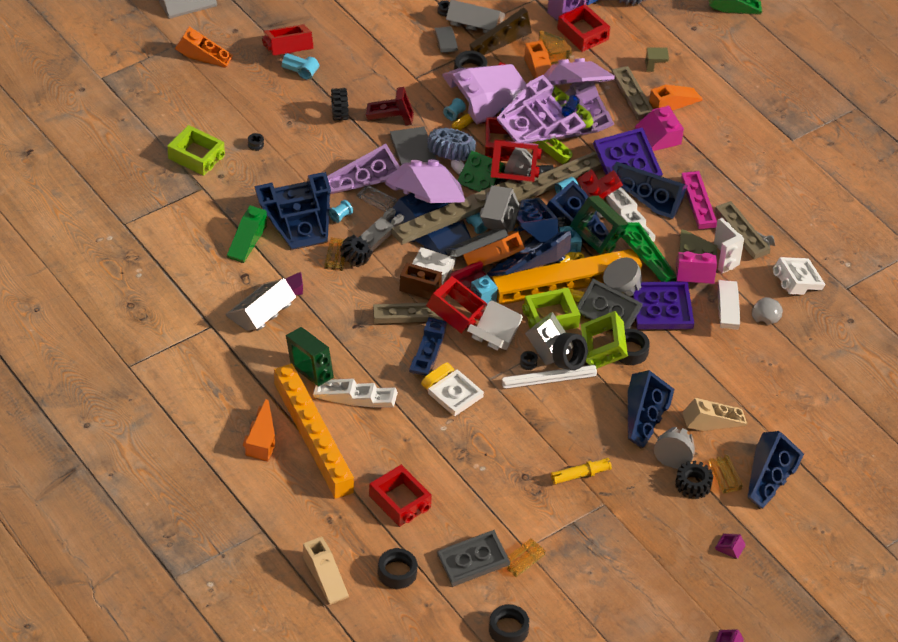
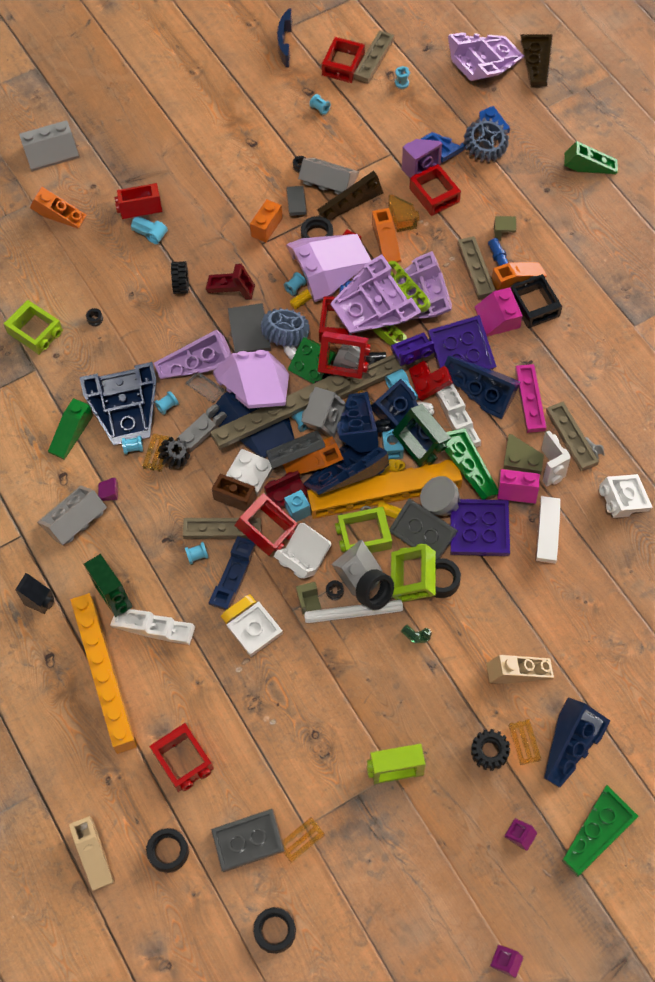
camera: 10 degrees right, 15 degrees up
(237, 368) = (34, 594): none -> black slope
(262, 436) = (51, 676): orange slope -> none
(312, 246) = (132, 445): none -> medium azure bush
(389, 333) = (196, 553): none -> medium azure bush
(418, 56) = (266, 221): none -> orange brick
(502, 364) = (308, 597): none -> olive panel
(570, 106) = (408, 289): clear blue pin -> none
(576, 72) = (419, 249): lavender wedge -> none
(580, 158) = (412, 349): none -> dark purple bracket
(589, 468) = (373, 733): yellow pin -> none
(604, 479) = (396, 764): none -> lime window
(618, 394) = (417, 637): none -> clear green arm
(646, 403) = (449, 650): dark blue wedge -> none
(652, 79) = (499, 254): none -> blue pin
(674, 447) = (473, 711): light grey piece -> none
(699, 131) = (540, 315): none -> black window
(767, 311) = (588, 537): light grey hair -> none
(805, 535) = (602, 827): none -> green wing

